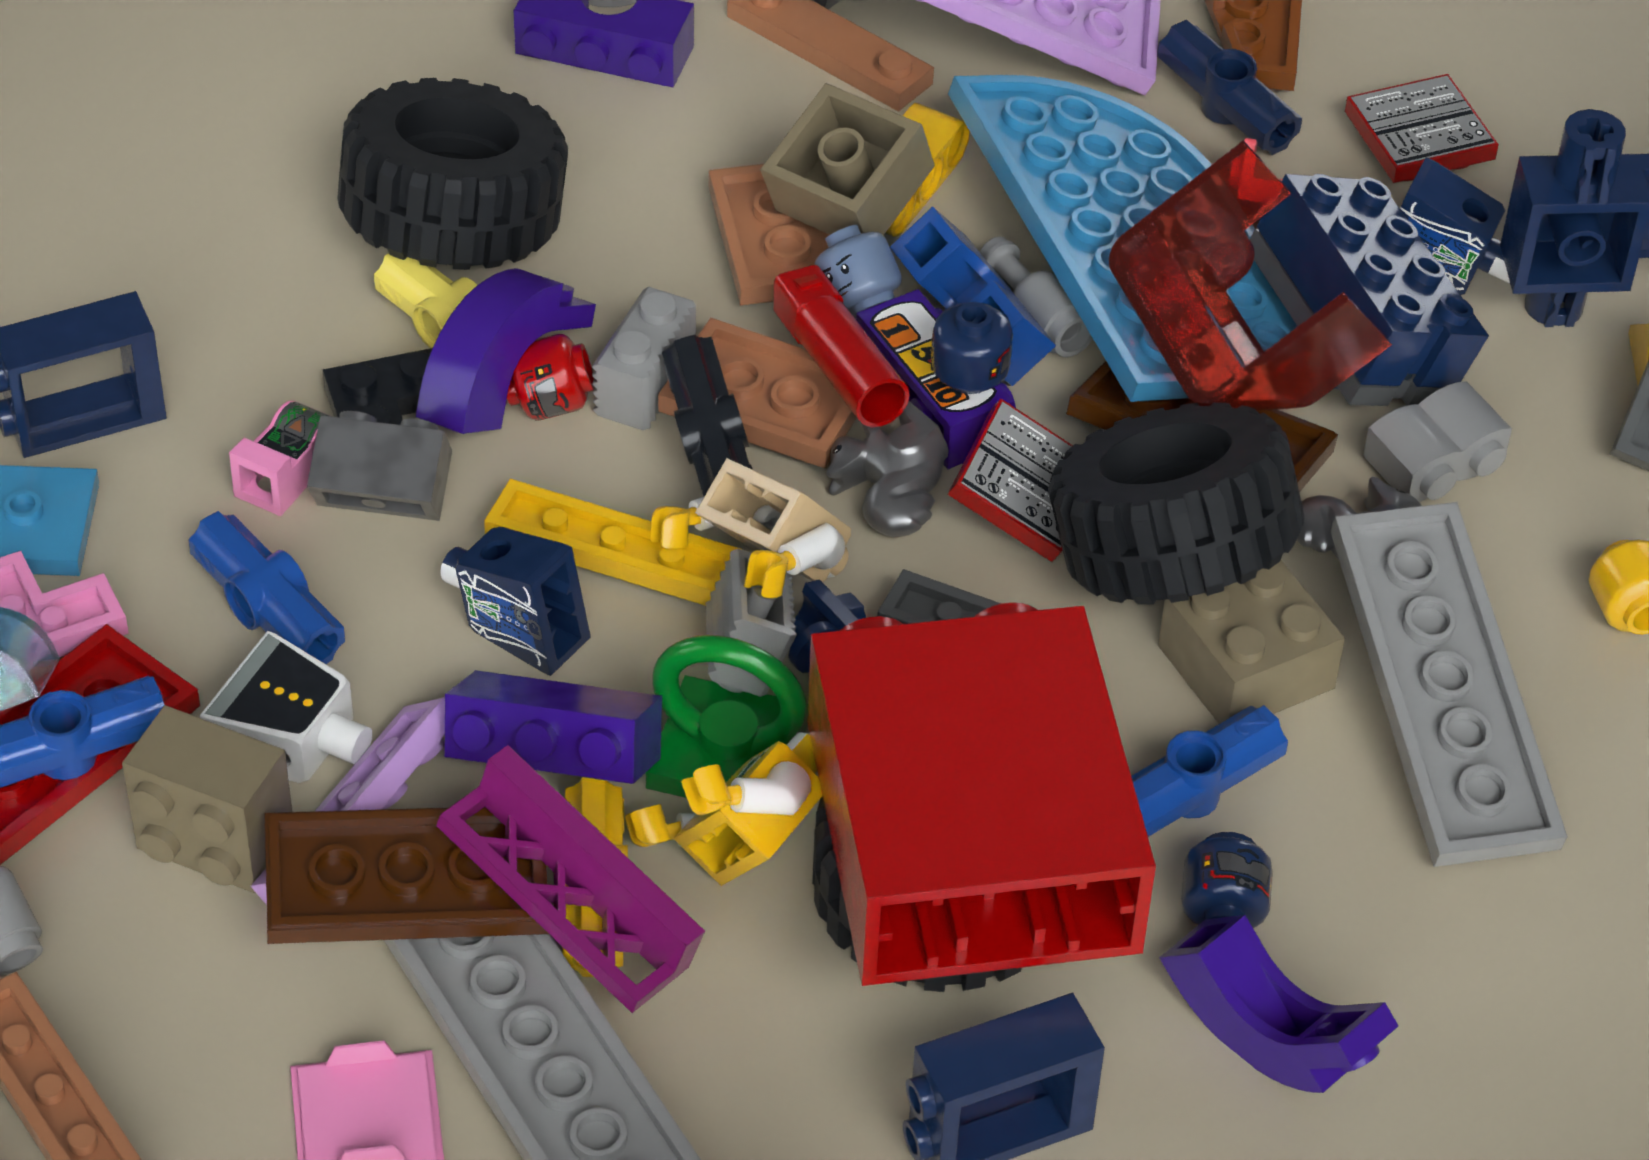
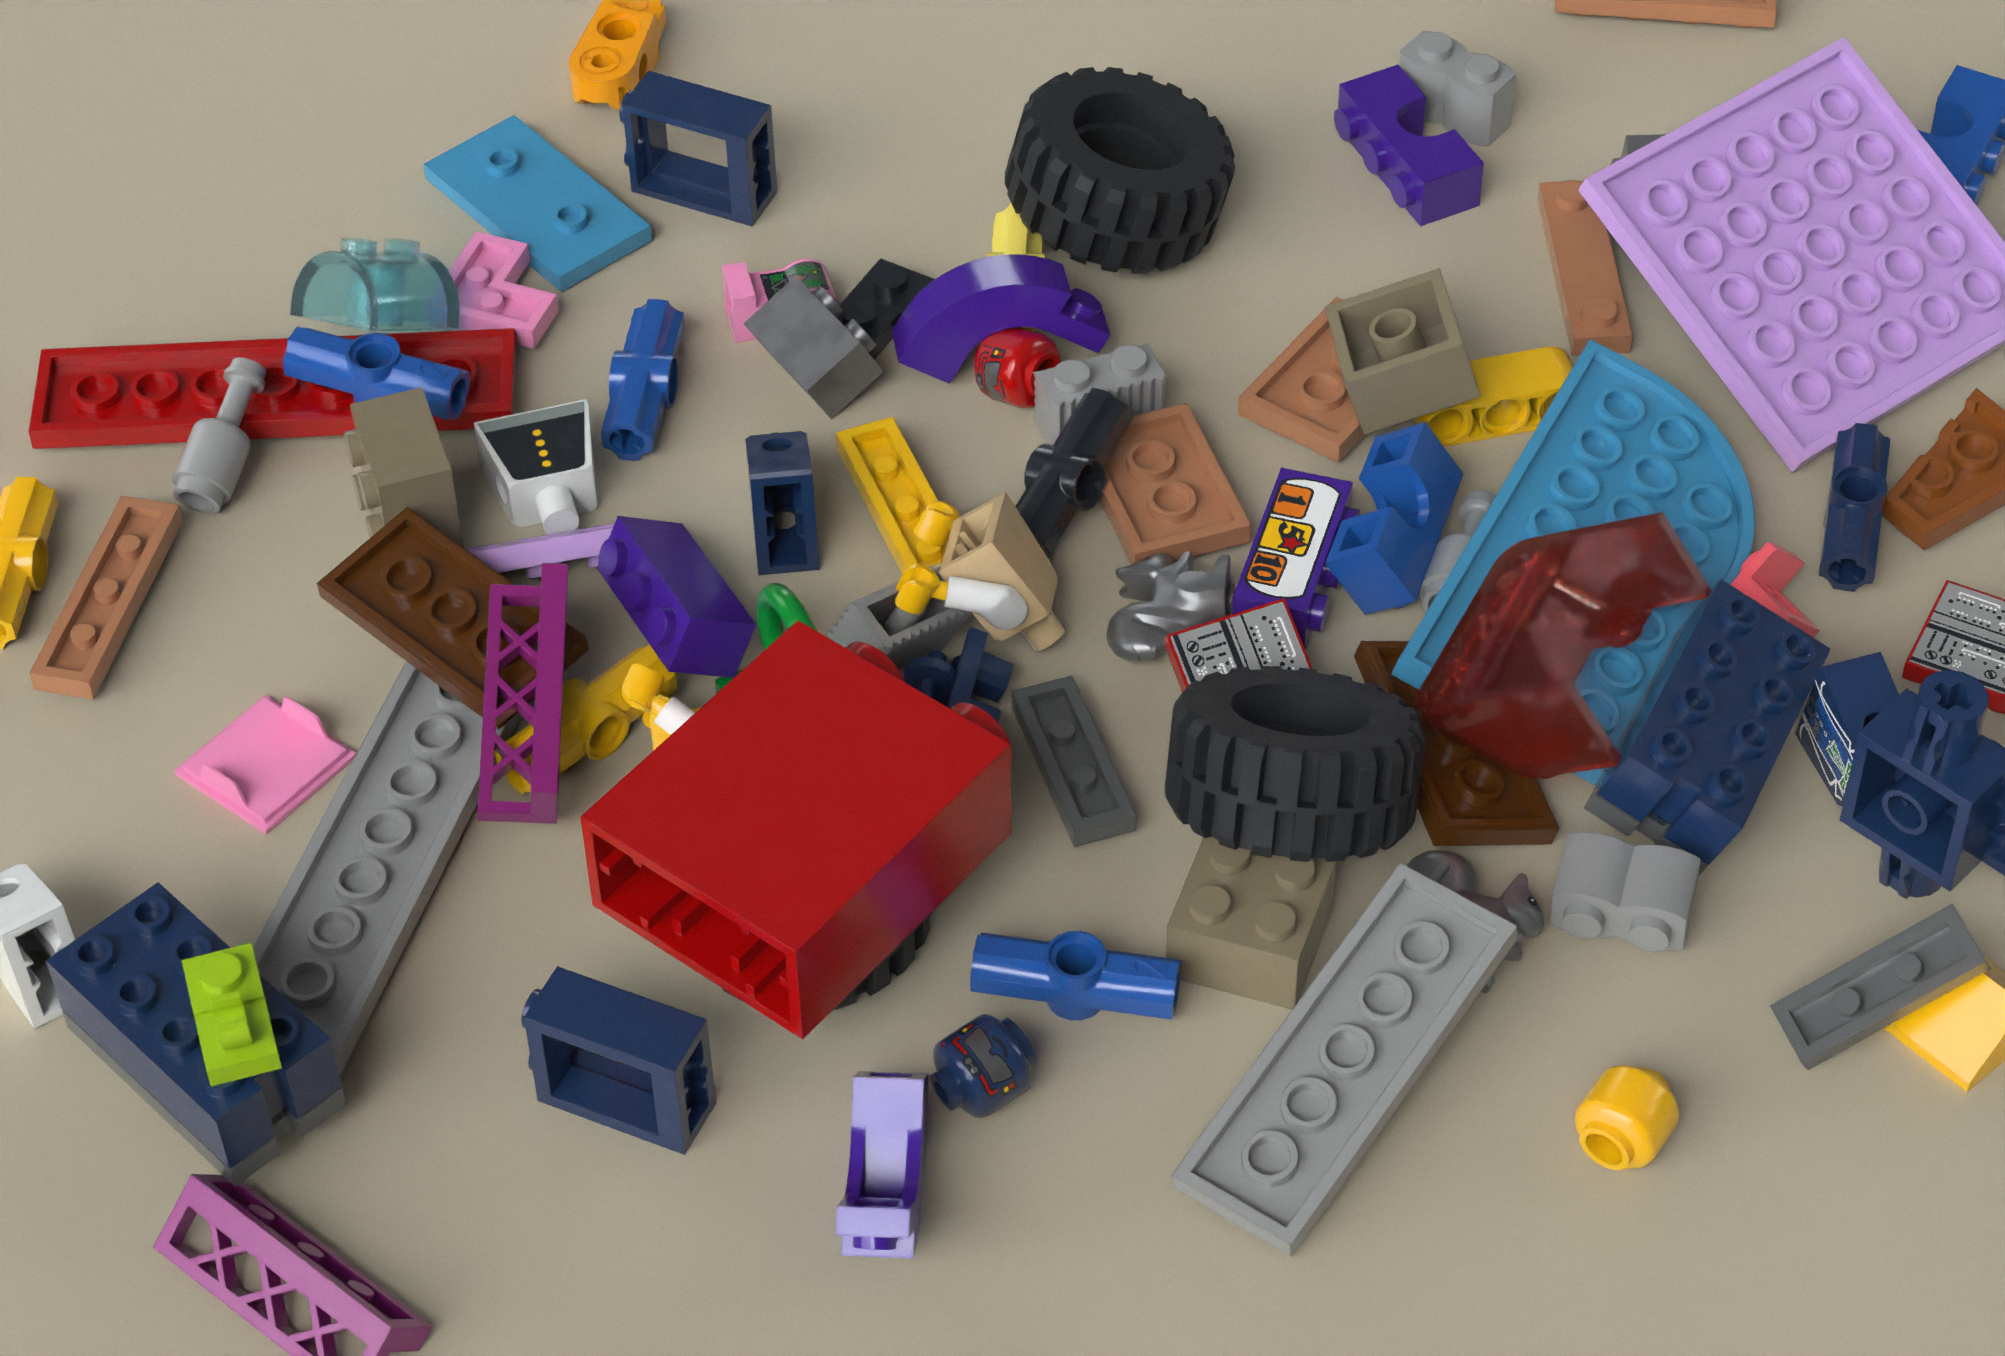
camera: 50 degrees right, 0 degrees up
(839, 345) = (1226, 480): red piece -> none
(860, 267) = (1322, 435): sand blue head -> none
(971, 347) = (1300, 541): dark blue head -> none

